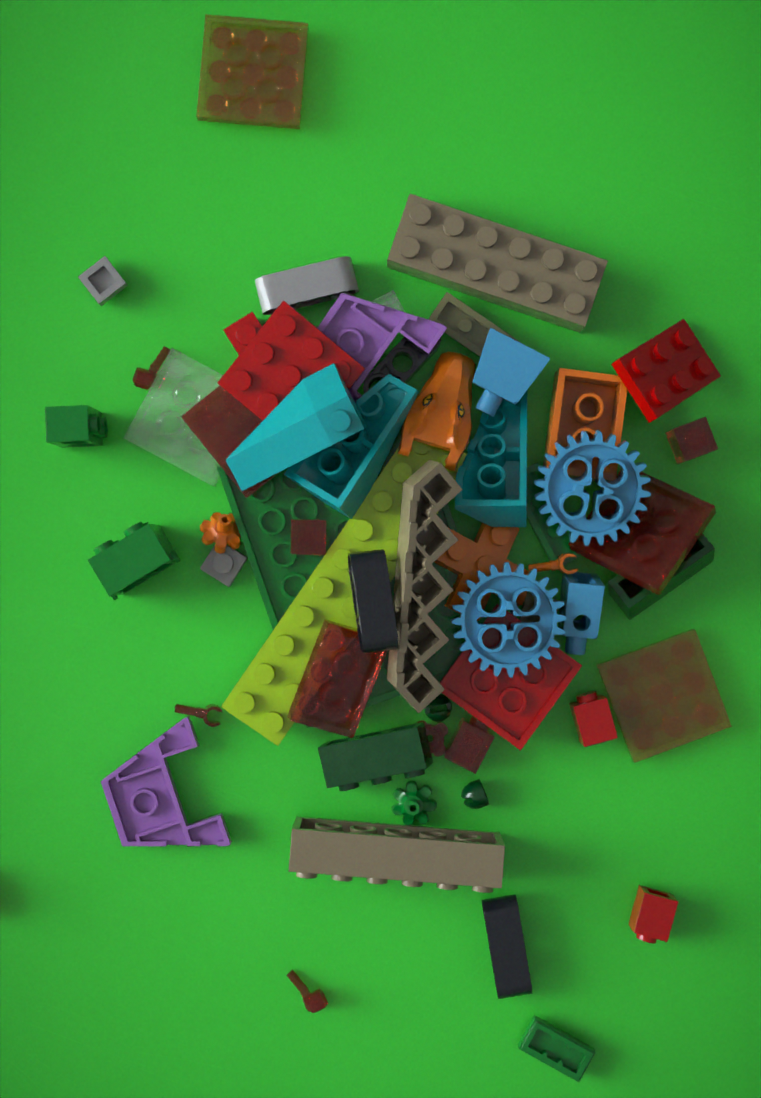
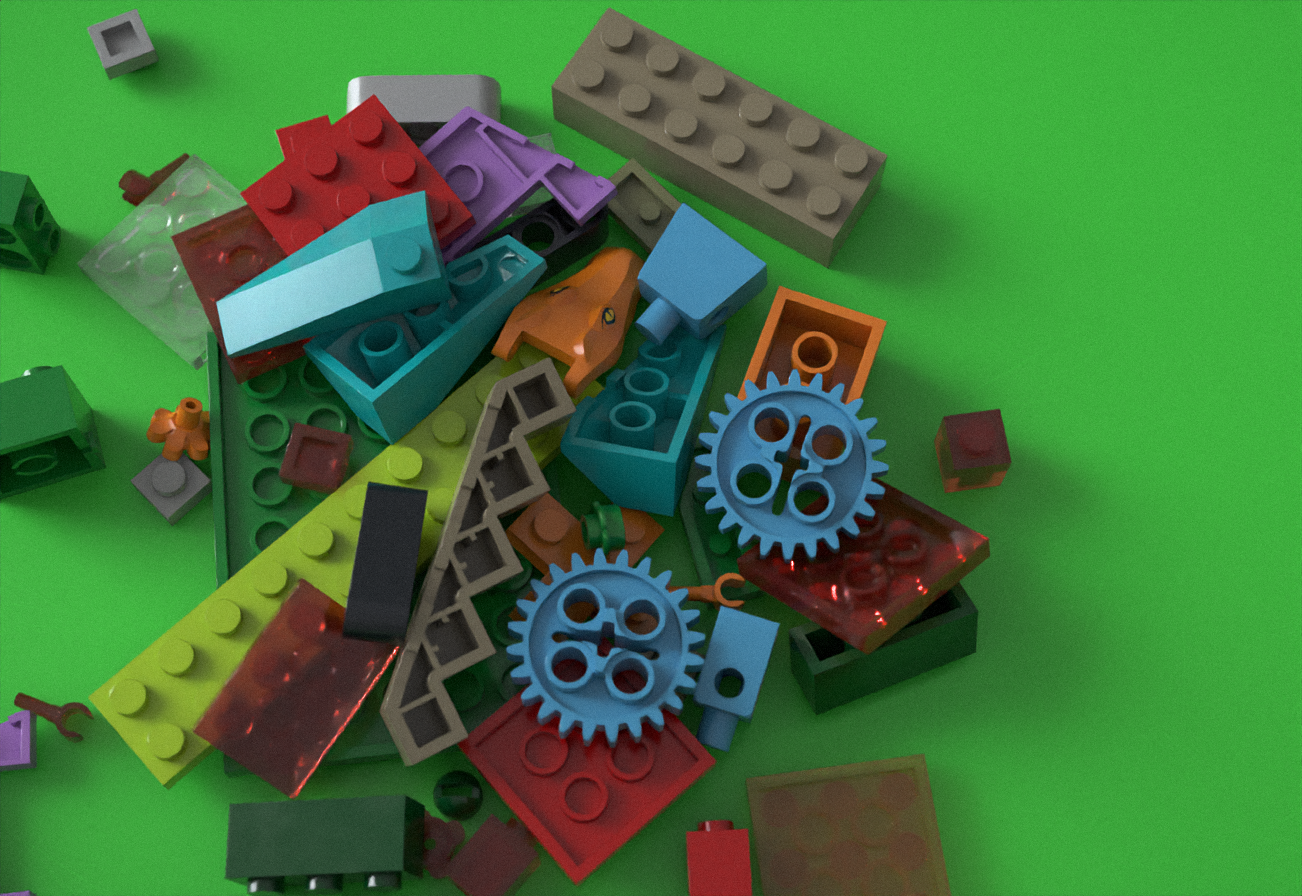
camera: 10 degrees right, 20 degrees down
(489, 546) = (603, 528): none -> green plate
(666, 370) = (948, 332): red plate -> none

